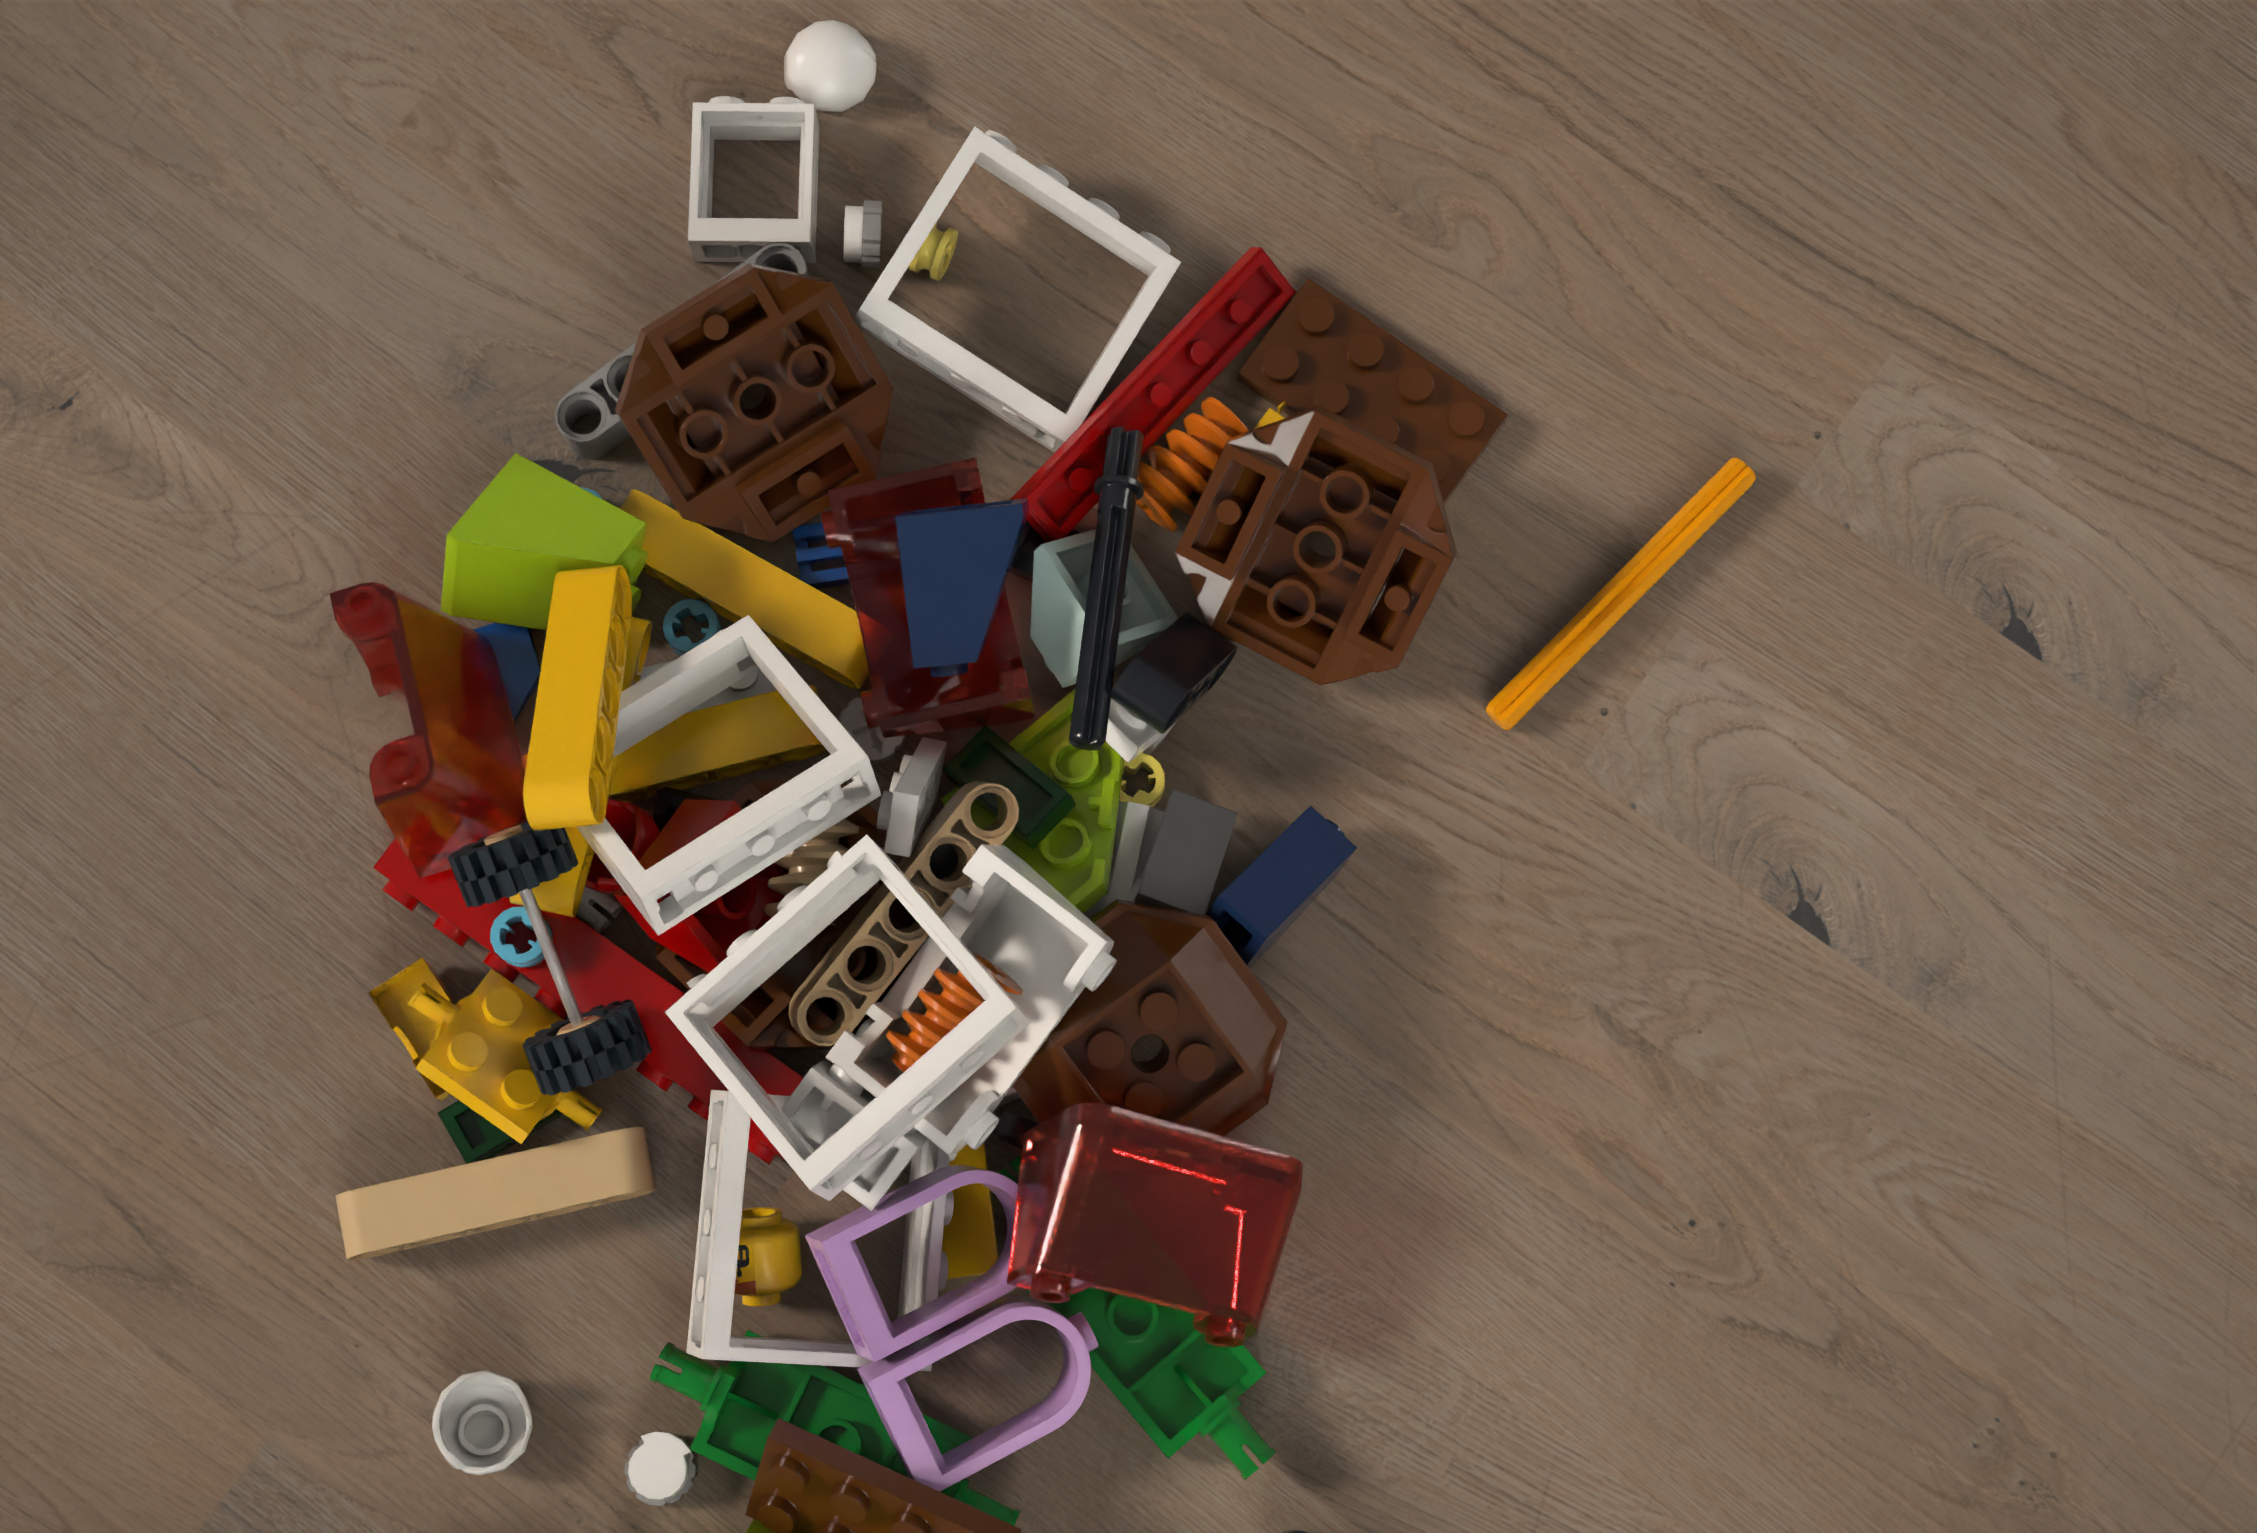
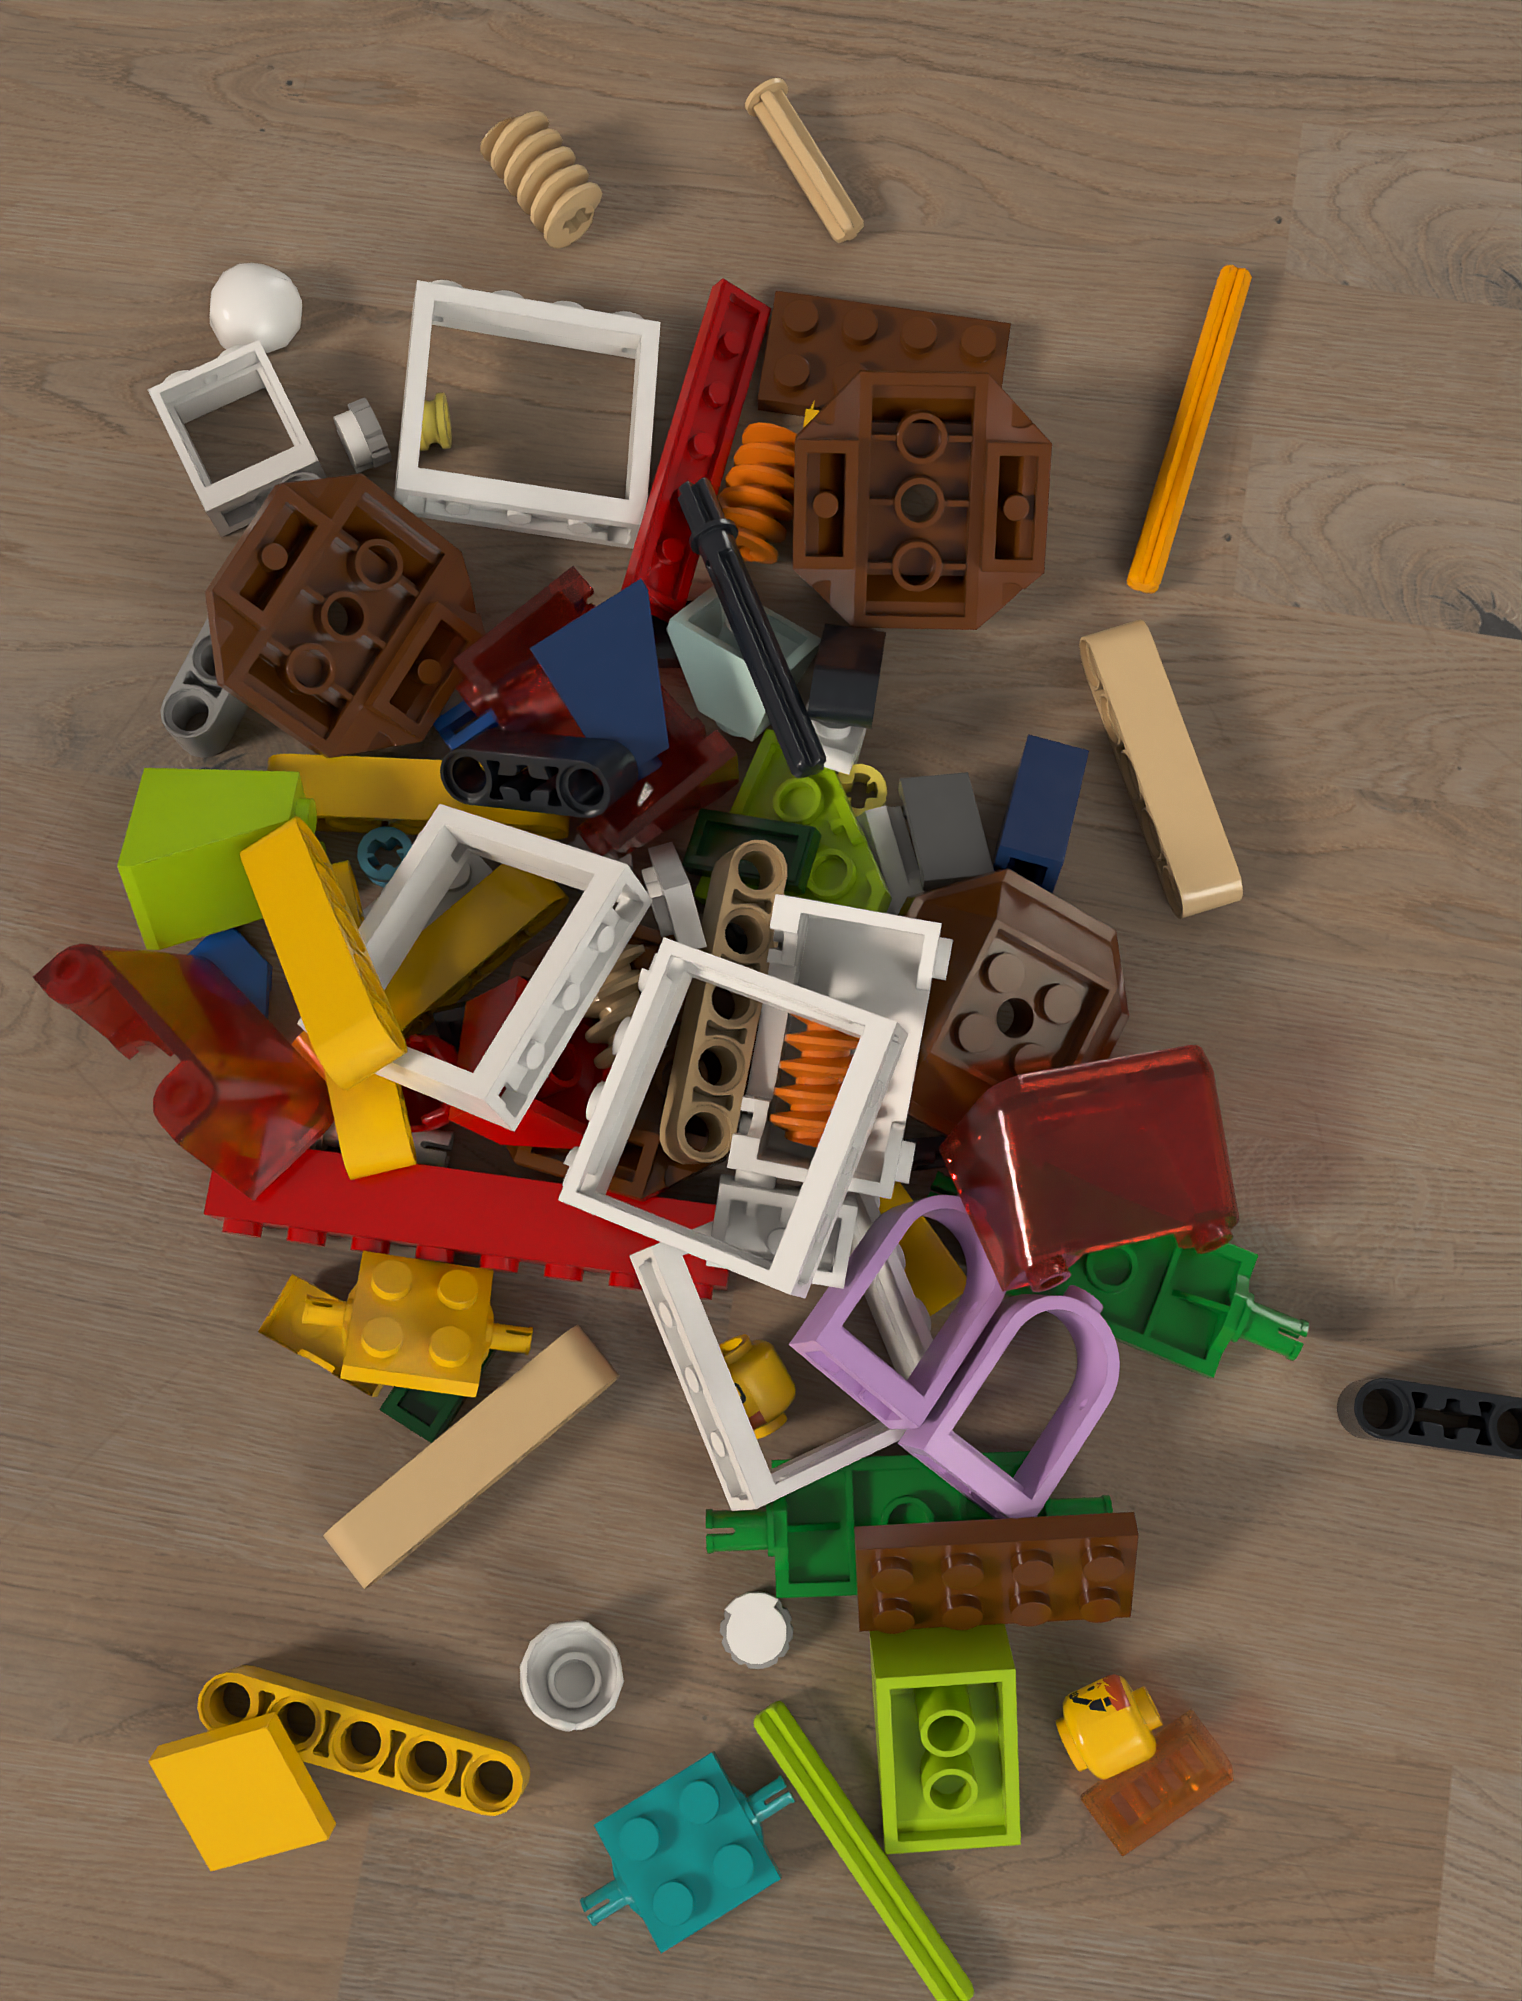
camera: 25 degrees left, 0 degrees up
(160, 1375) = (242, 1792): none -> yellow tile
(254, 1375) = (399, 1733): none -> yellow beam
(509, 952) = (373, 1226): medium azure bush -> none
(587, 1043) = (490, 1273): black axle -> none
(851, 628) = (536, 789): none -> black beam
(1149, 69) = (542, 177): none -> tan piece
(1401, 167) = (804, 159): none -> tan axle
(1418, 895) = (1160, 769): none -> tan beam

